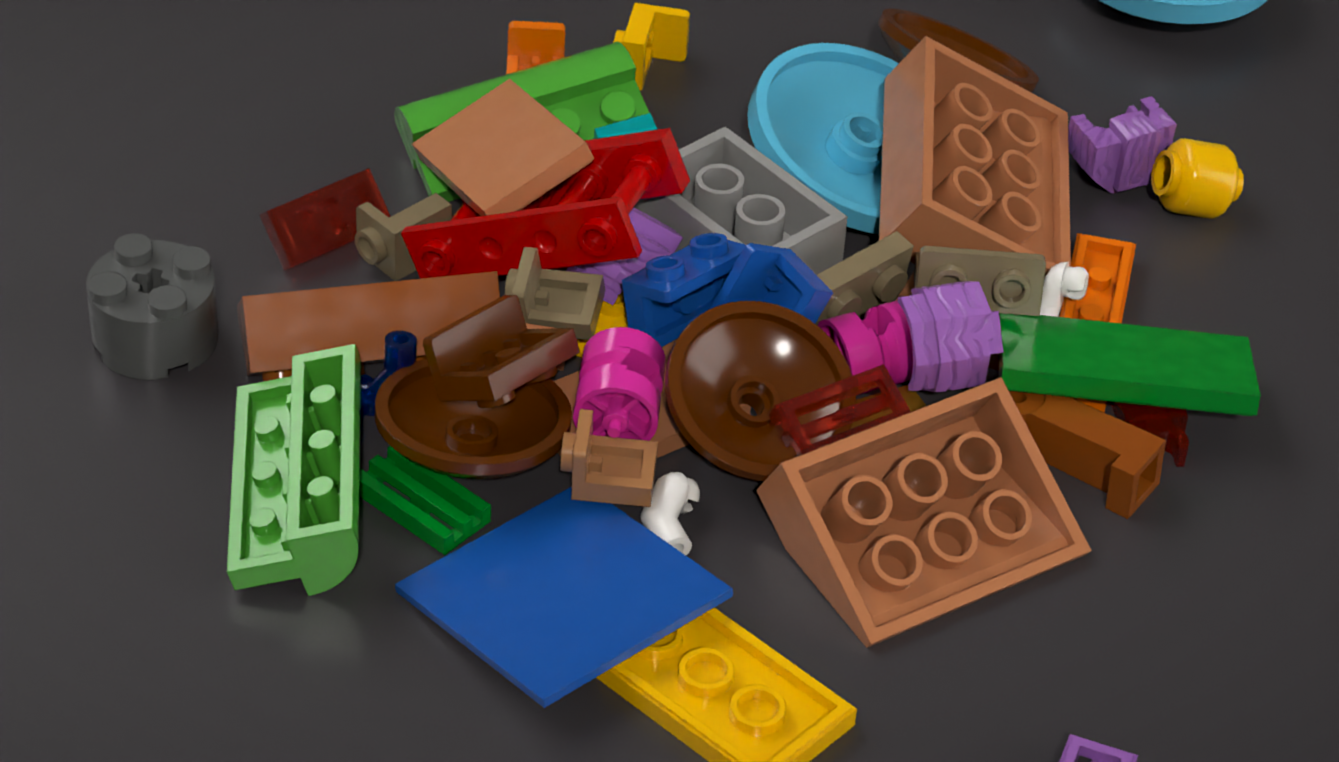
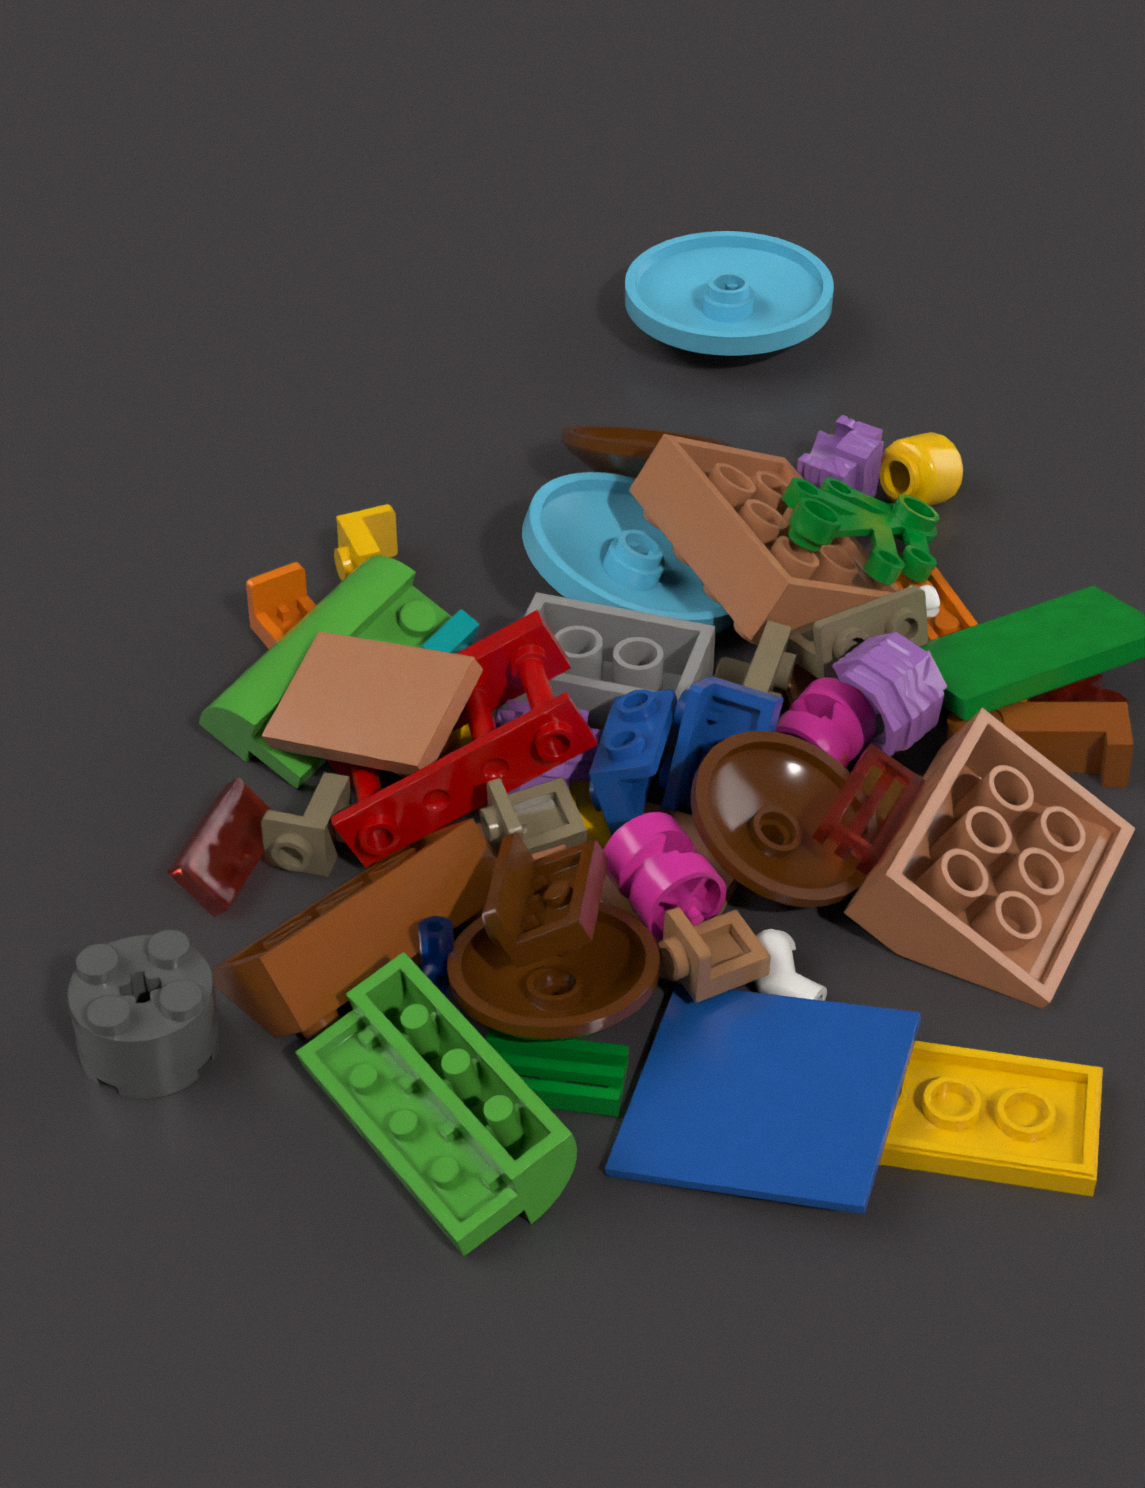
camera: 30 degrees left, 0 degrees up
(1140, 214) = (846, 512): none -> green plant

